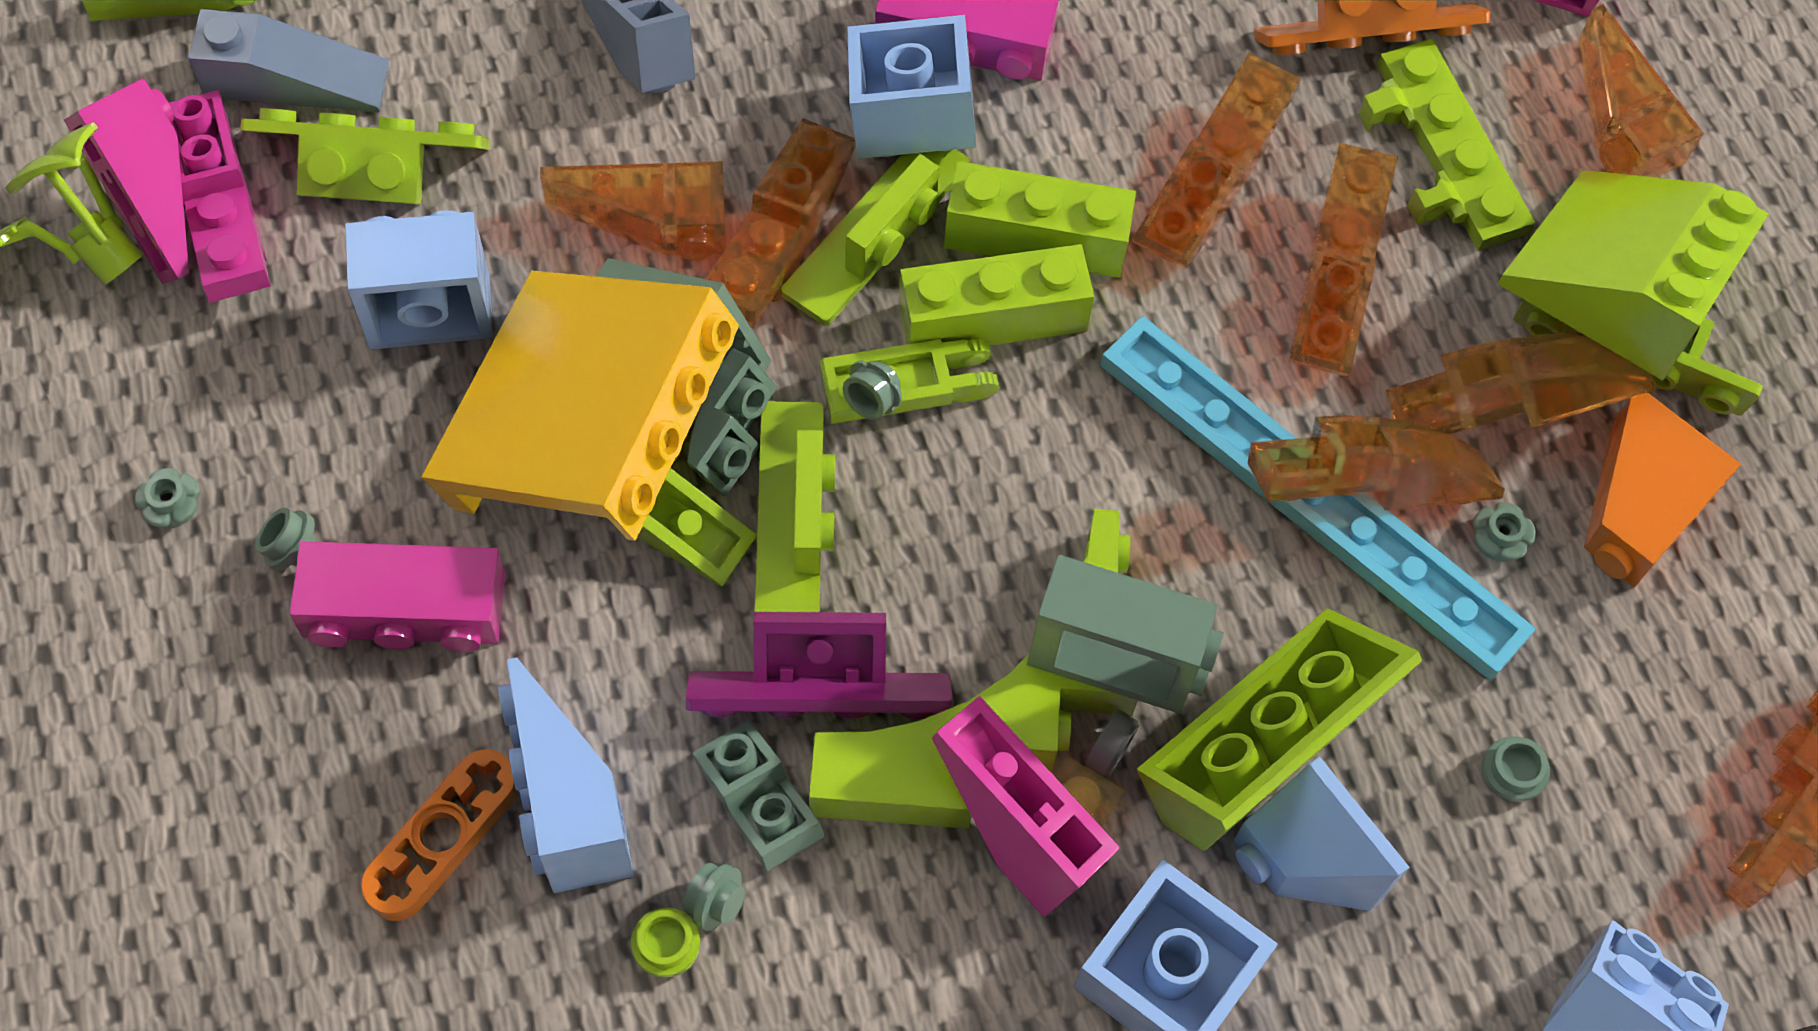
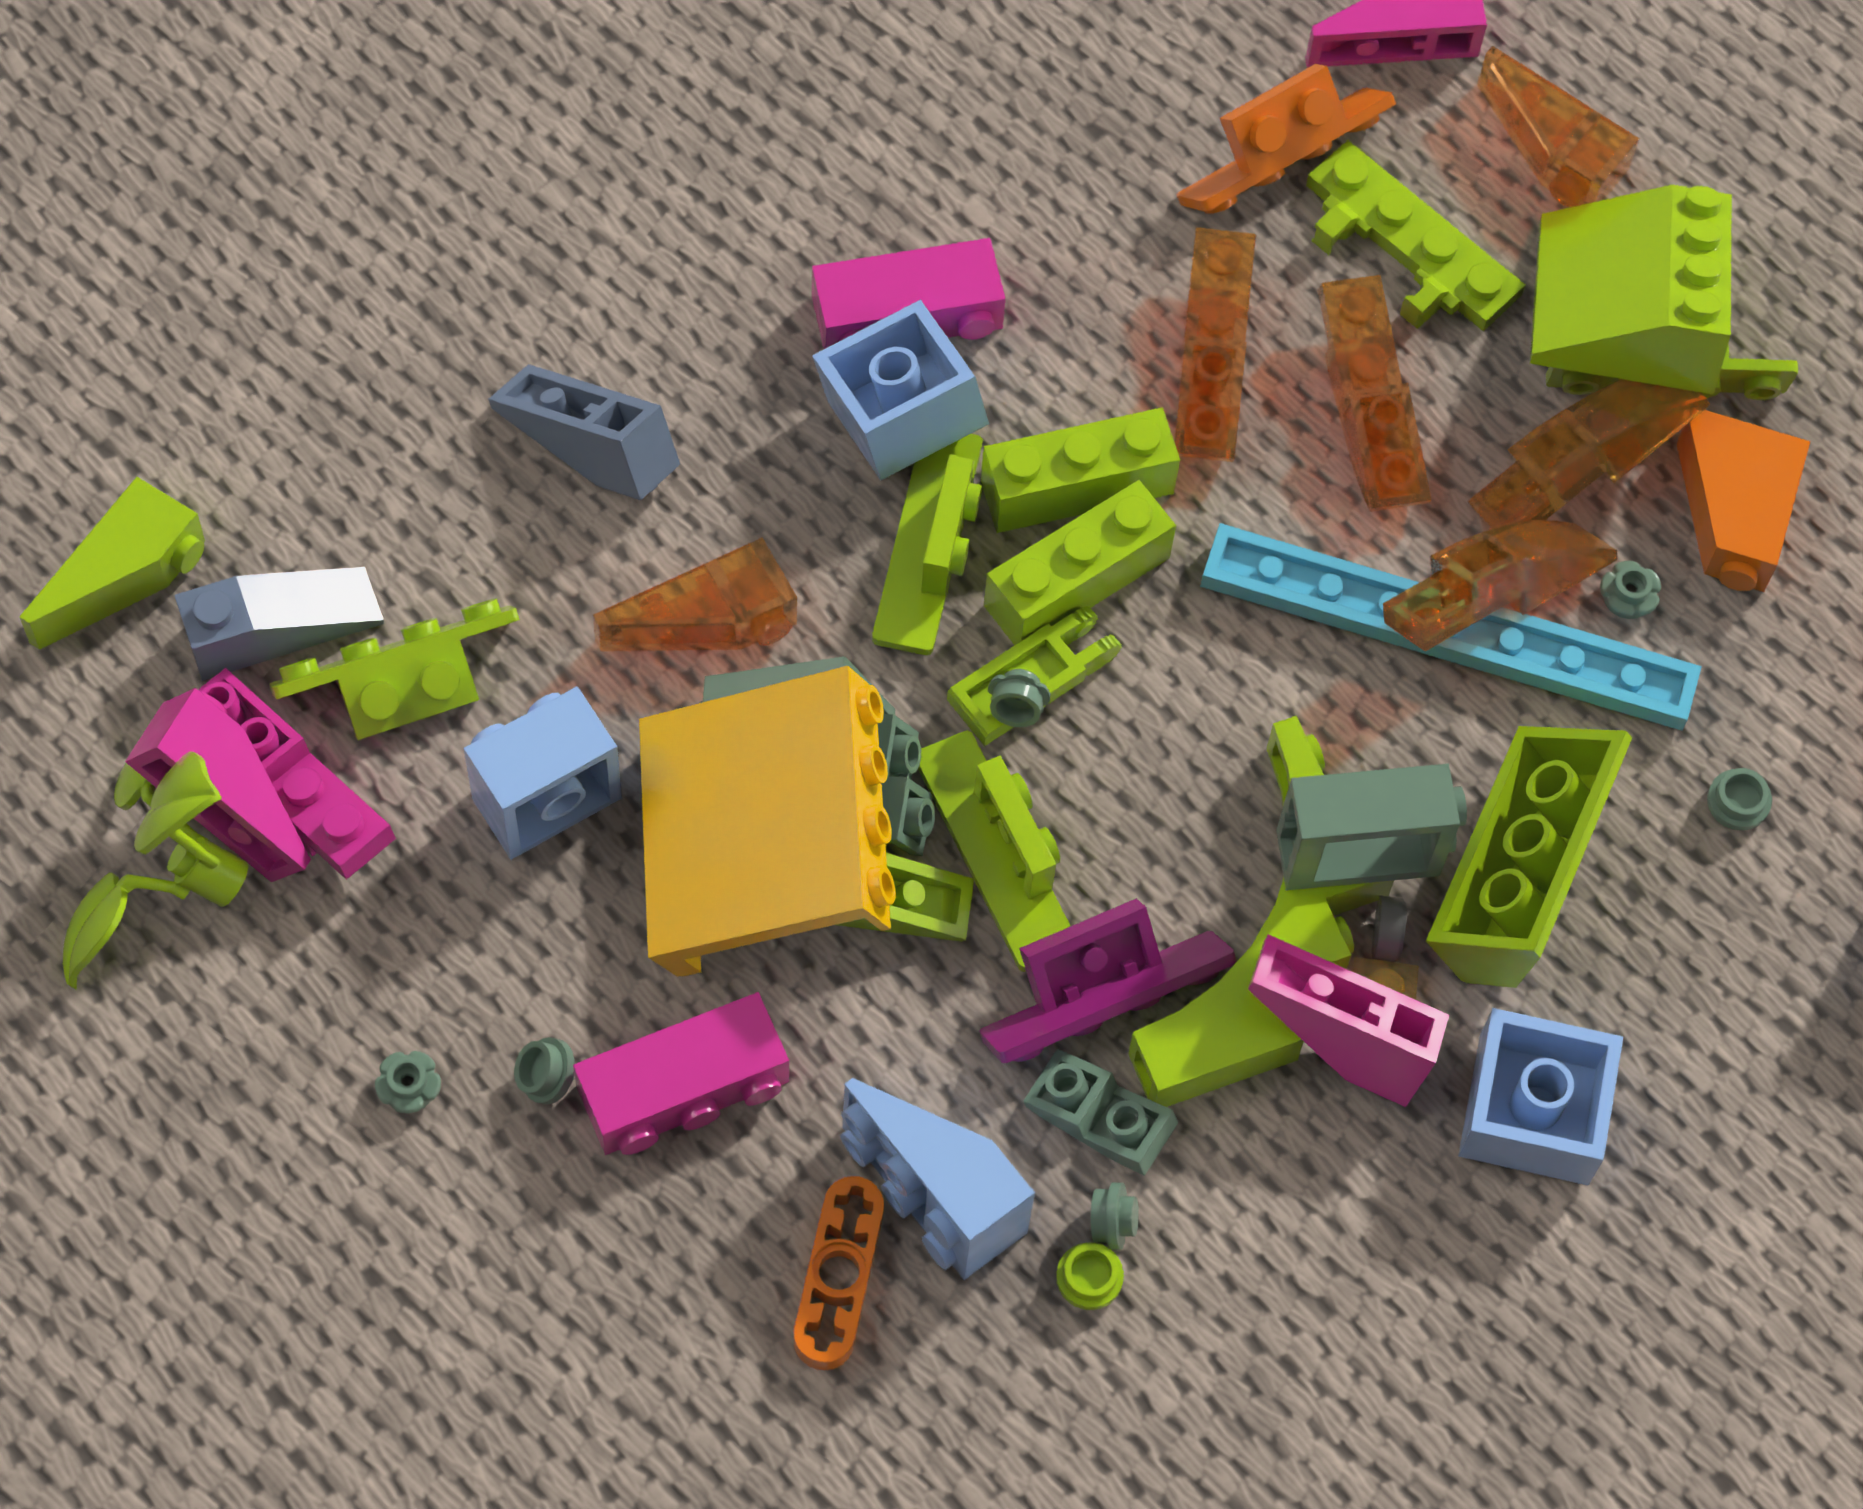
camera: 25 degrees left, 0 degrees up
(783, 217) = (840, 563): clear orange slope -> none
(1318, 845) = (1613, 938): light blue slope -> none

